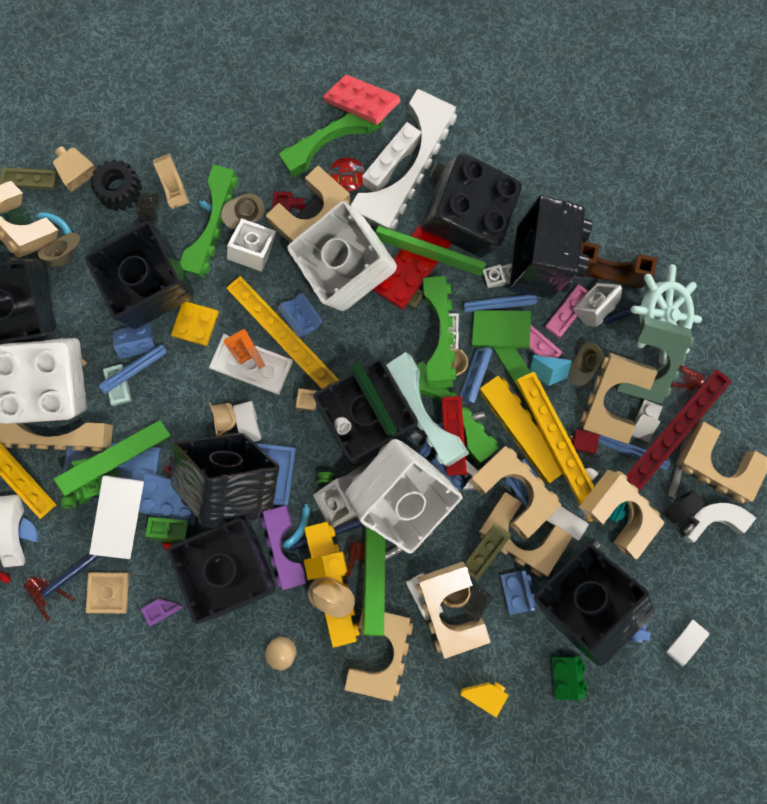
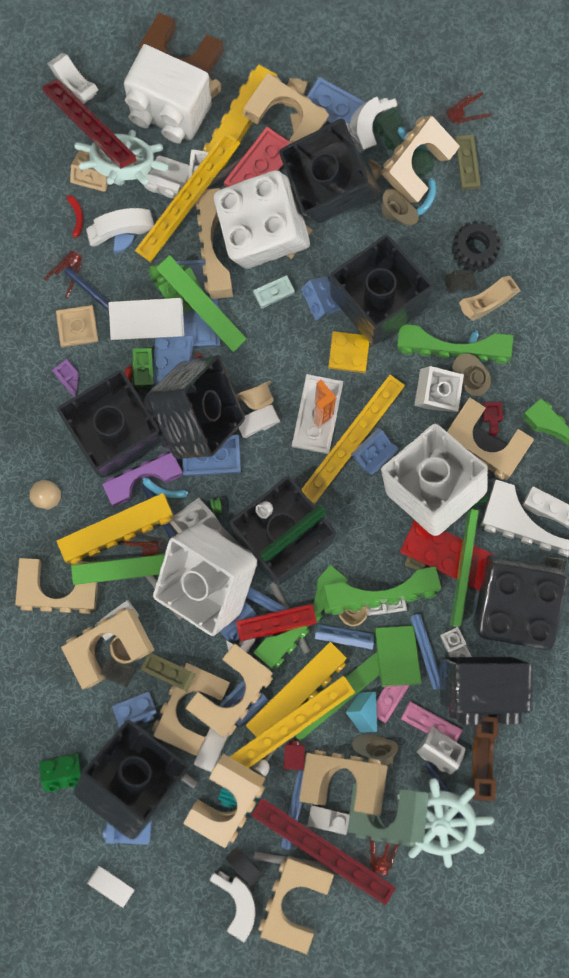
camera: 75 degrees right, 0 degrees up
(73, 167) = (486, 201): tan torso -> none
(132, 368) = (291, 303): medium blue axle -> none
(305, 400) = (289, 469): tan panel -> none
(325, 565) = (130, 520): yellow slope -> none
(331, 597) = (101, 530): tan piece -> none
(348, 173) = (536, 471): dish -> none
(407, 375) = (327, 565): light aqua arch -> none
(486, 696) = (32, 694): yellow slope -> none

